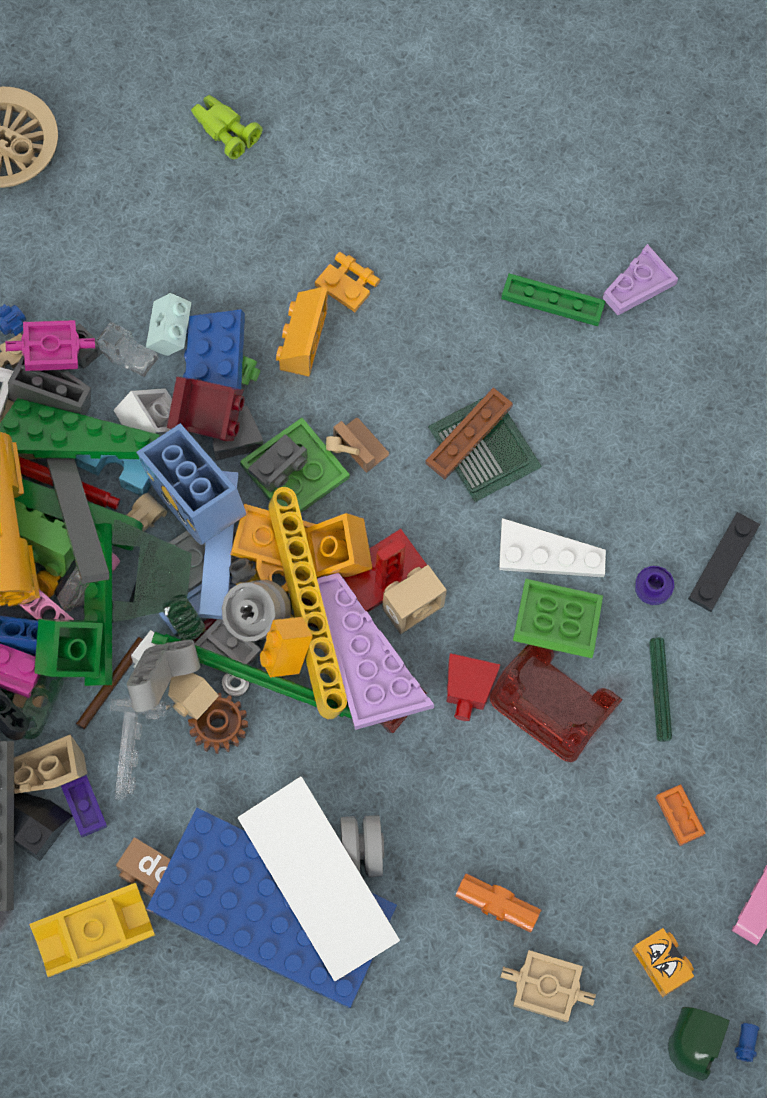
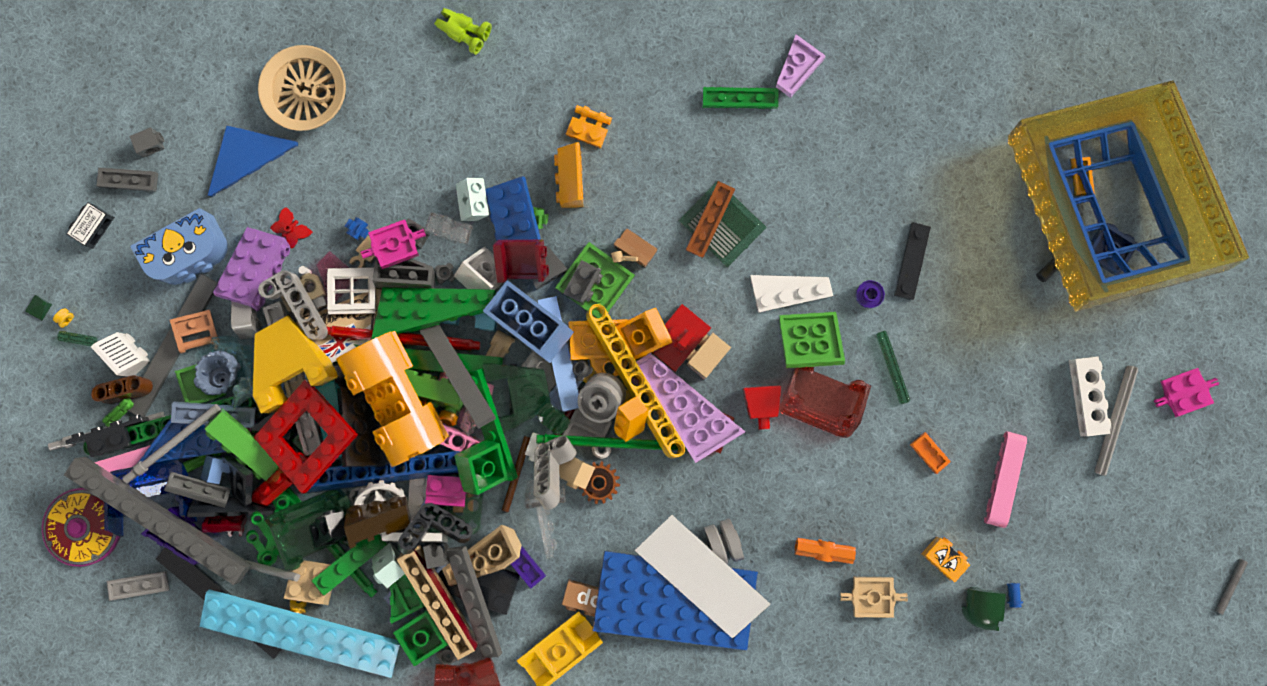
camera: 15 degrees left, 15 degrees up
(103, 399) = (441, 278): none -> dark grey plate

